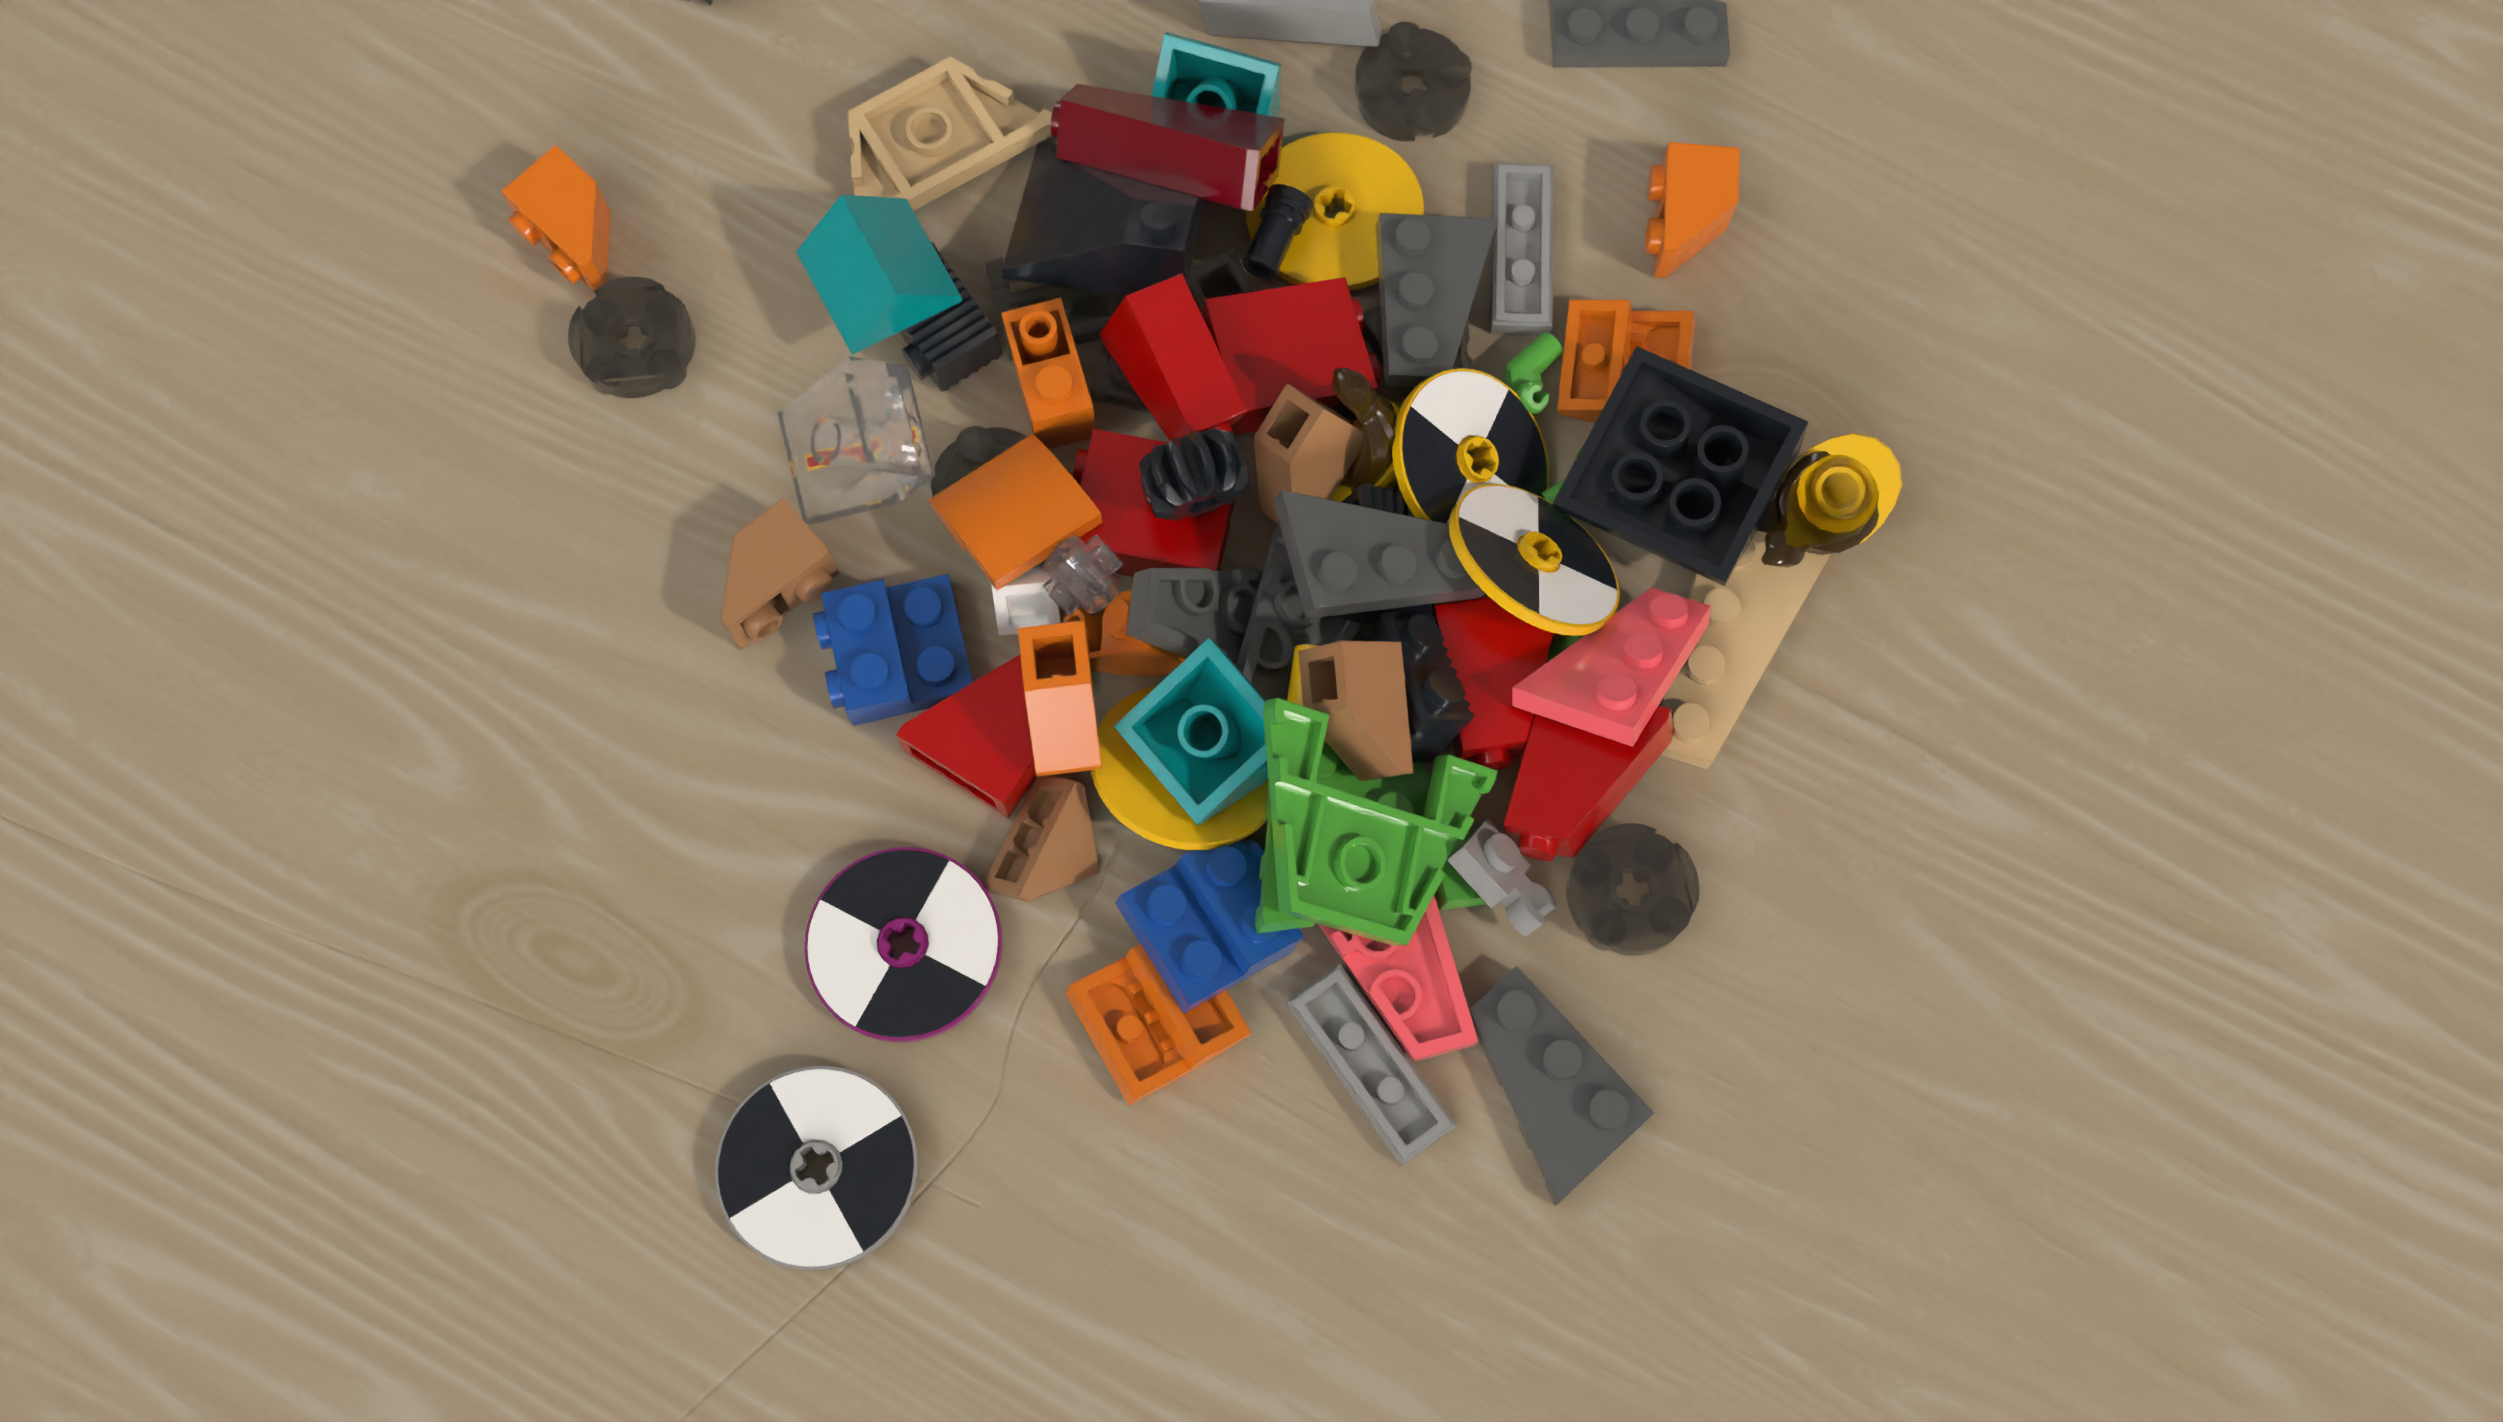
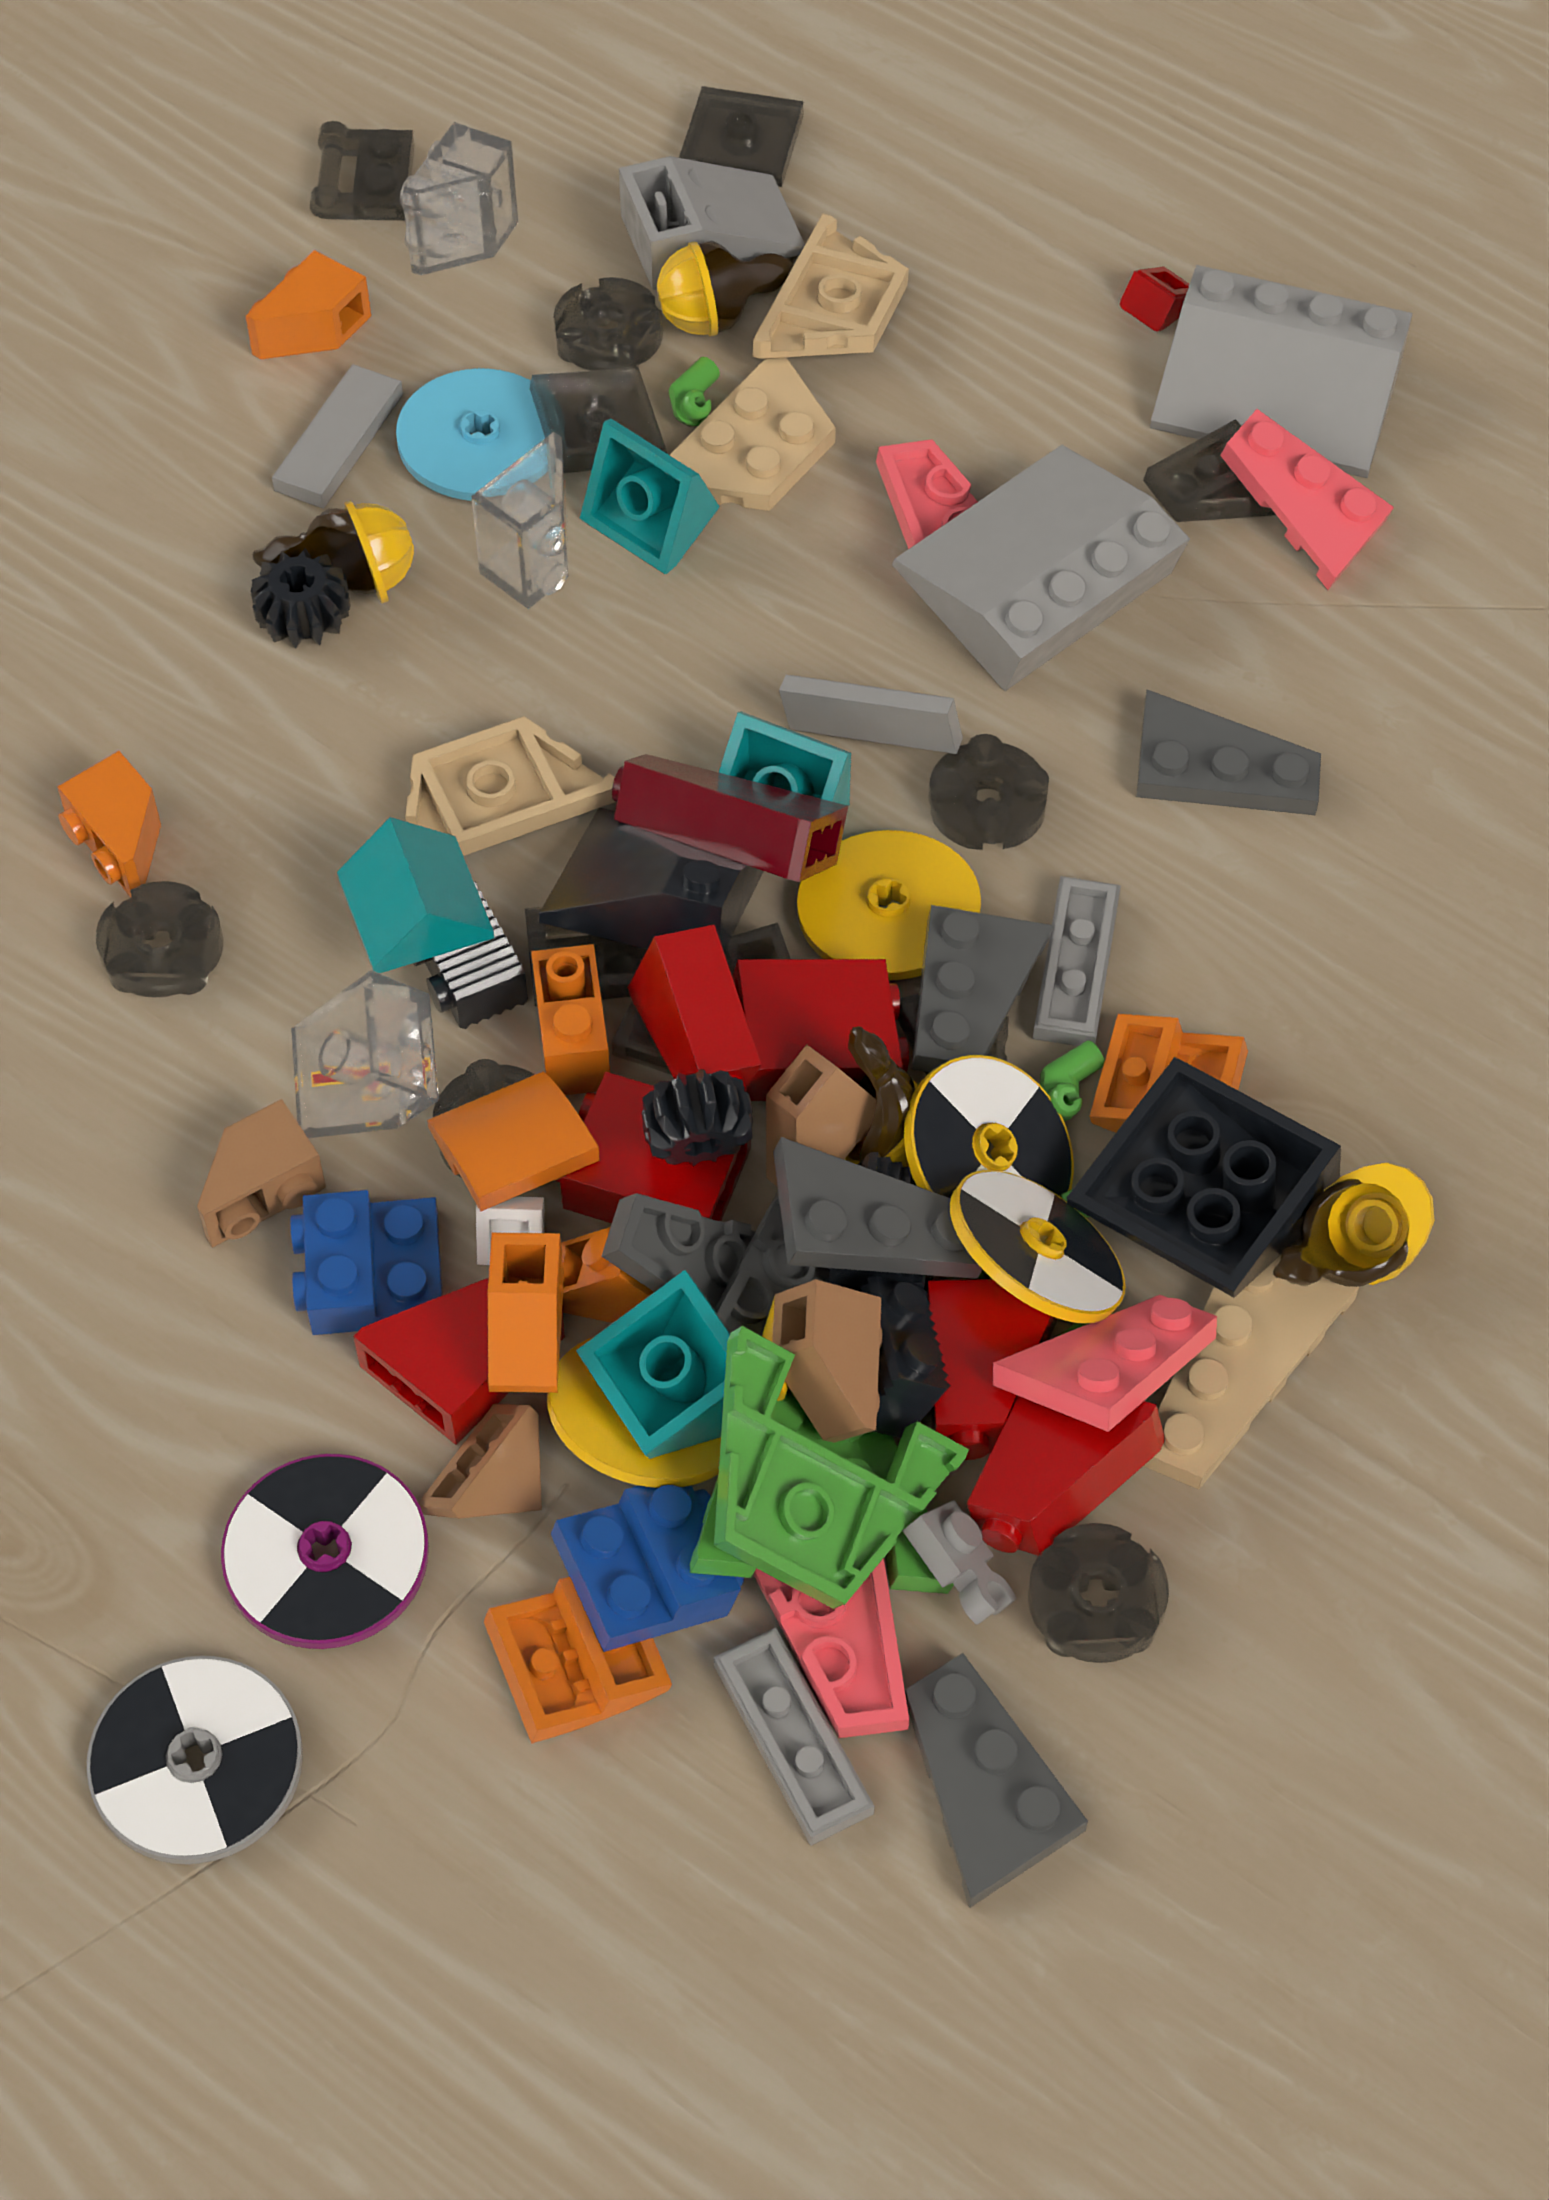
camera: 10 degrees right, 15 degrees down
(1082, 575) = (570, 1204): clear gear -> none
(1282, 219) = (830, 902): black pin -> none
(1695, 201) = (1261, 935): orange slope -> none

